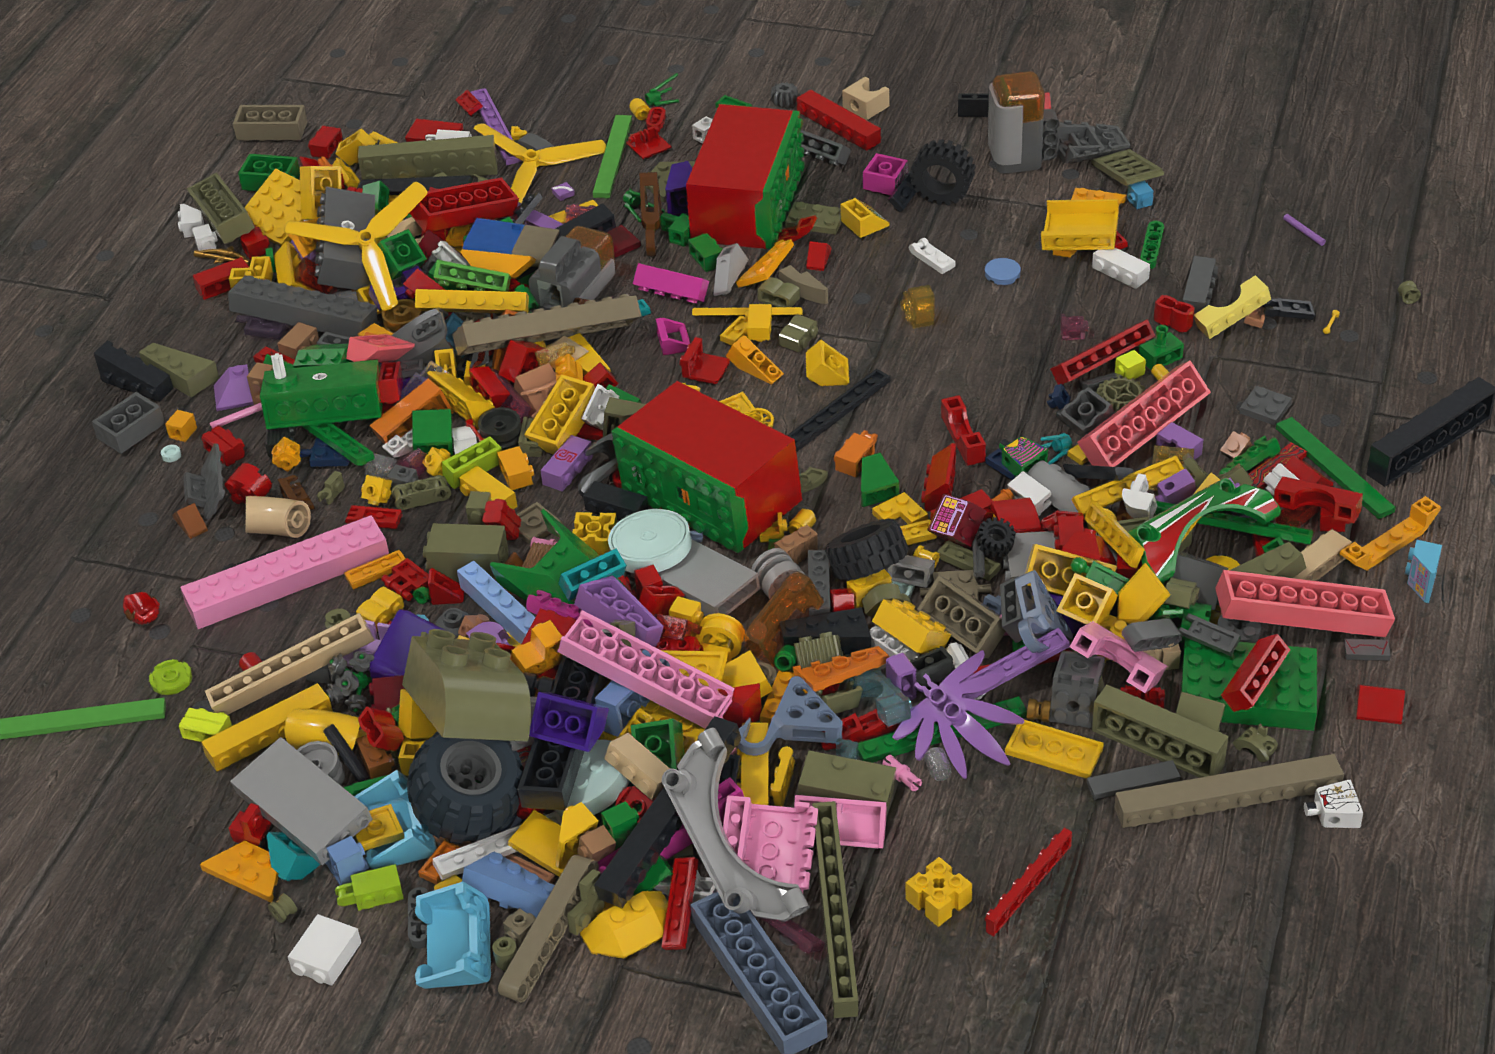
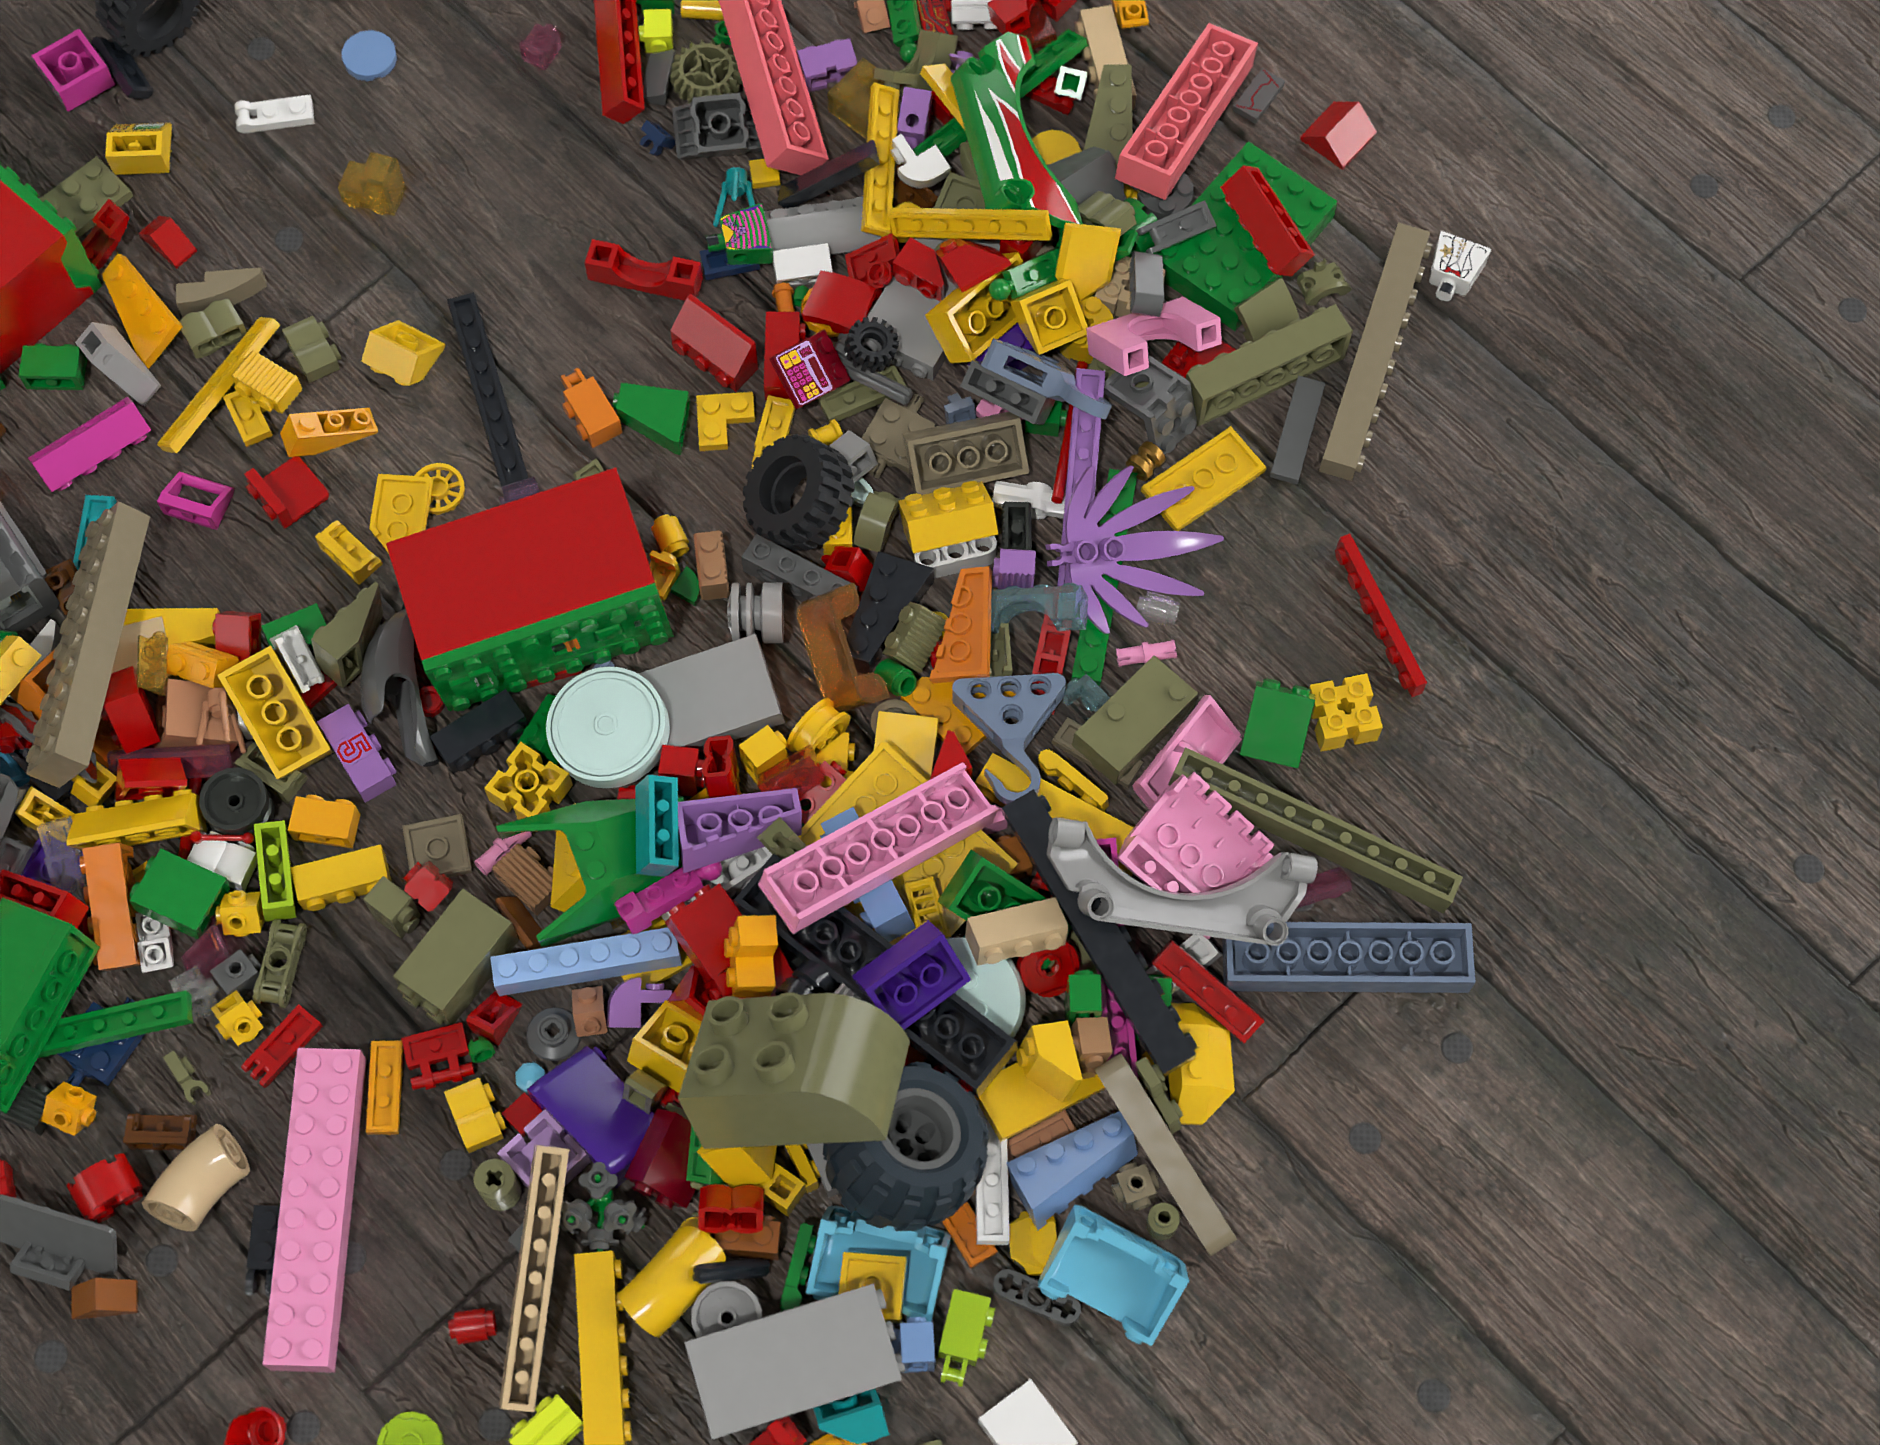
camera: 65 degrees left, 25 degrees up
(898, 853) = (1277, 723): none -> green brick

